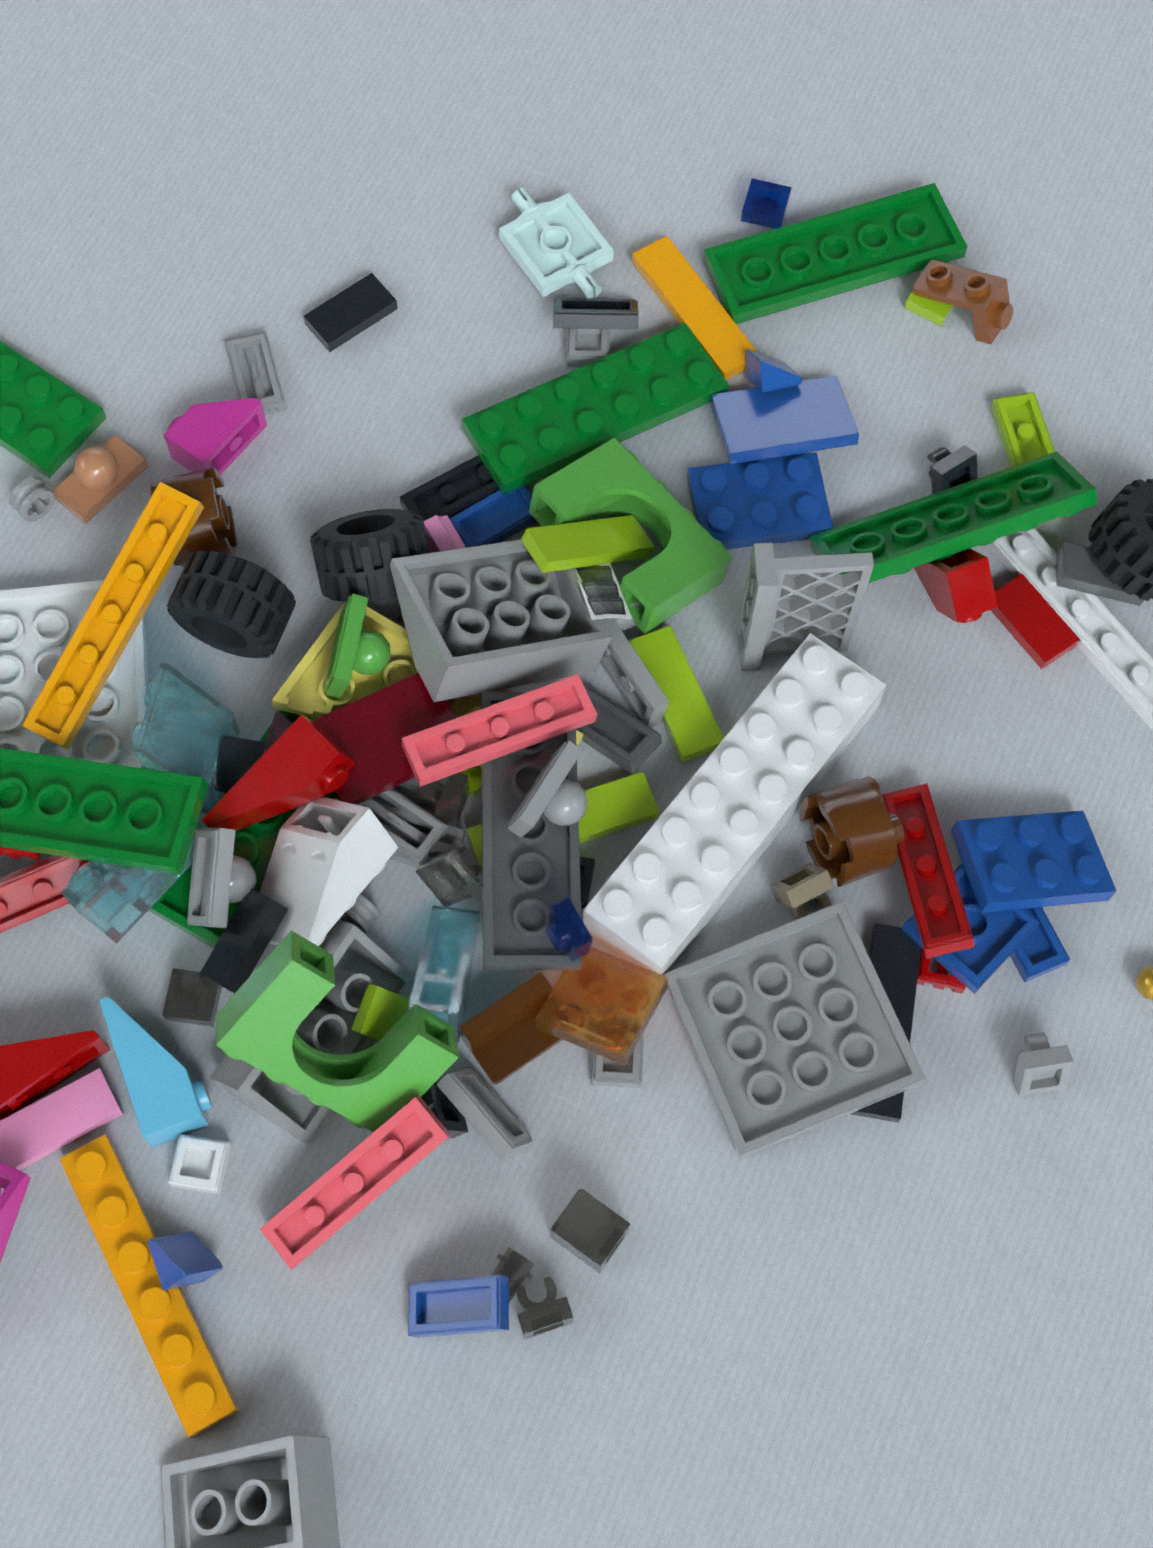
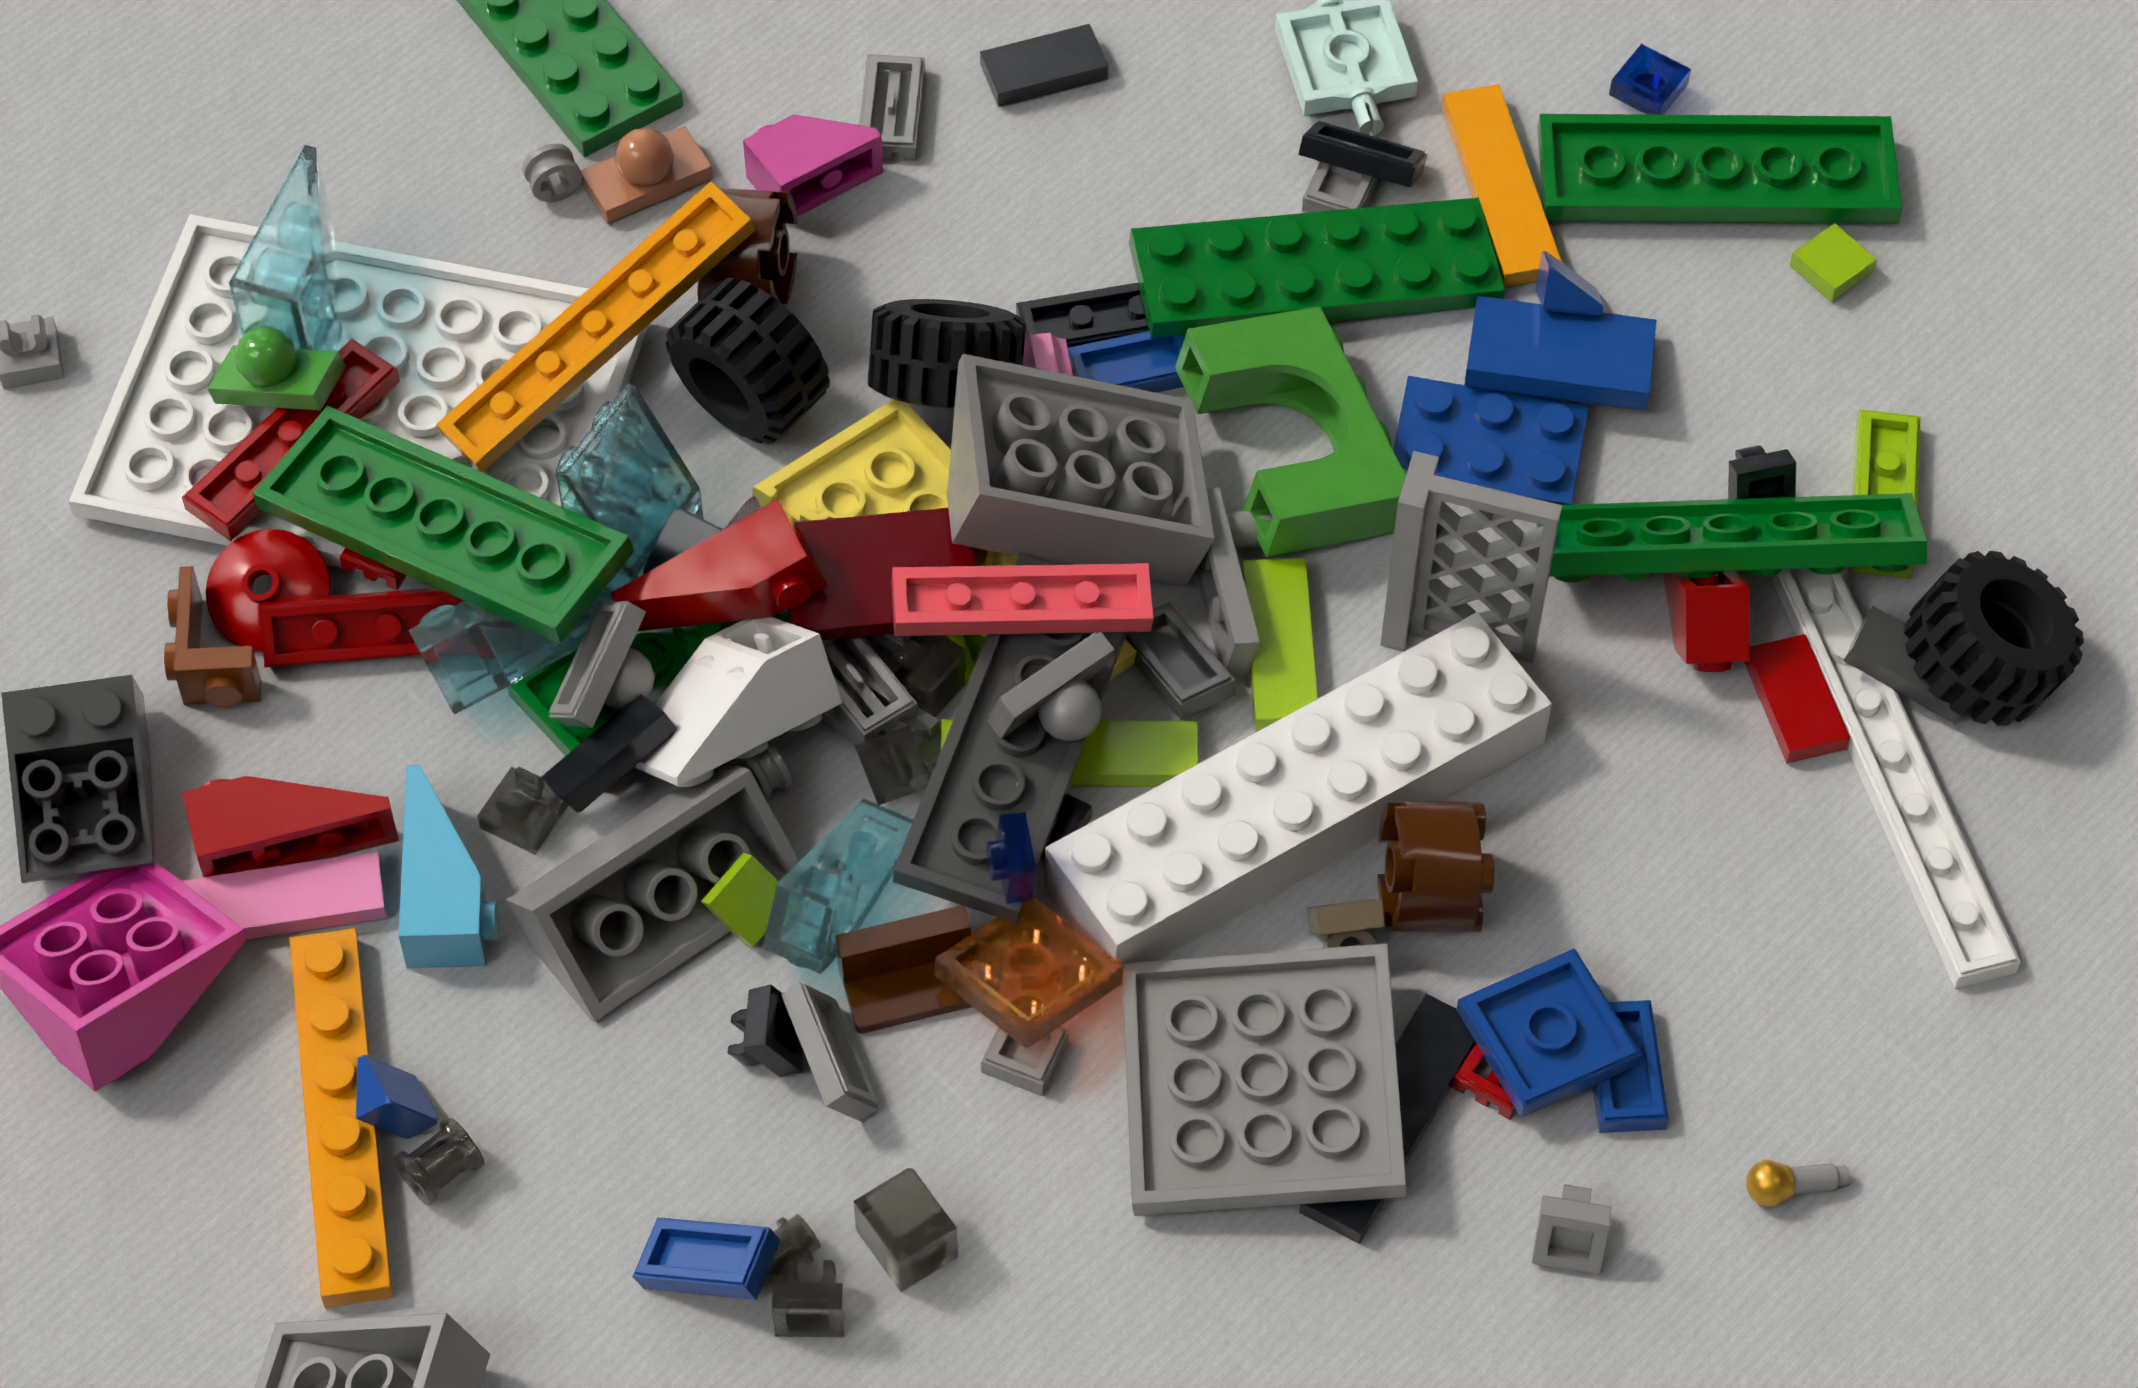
camera: 20 degrees right, 10 degrees down
(199, 1164) = (456, 1002): white tile -> none
(235, 1297) = (439, 1161): none -> clear smoke bush
(354, 648) = (888, 458): bright green tile -> none
(355, 1182) = (636, 1071): coral plate -> none
(362, 1086) = (690, 966): bright green arch -> none
(587, 543) = (1231, 422): lime tile -> none
(602, 592) = (1228, 461): sticker -> none
(929, 873) = (1515, 945): red tile -> none
(969, 289) = (1892, 270): dark orange bracket -> none
(1032, 861) = (1664, 979): blue plate -> none

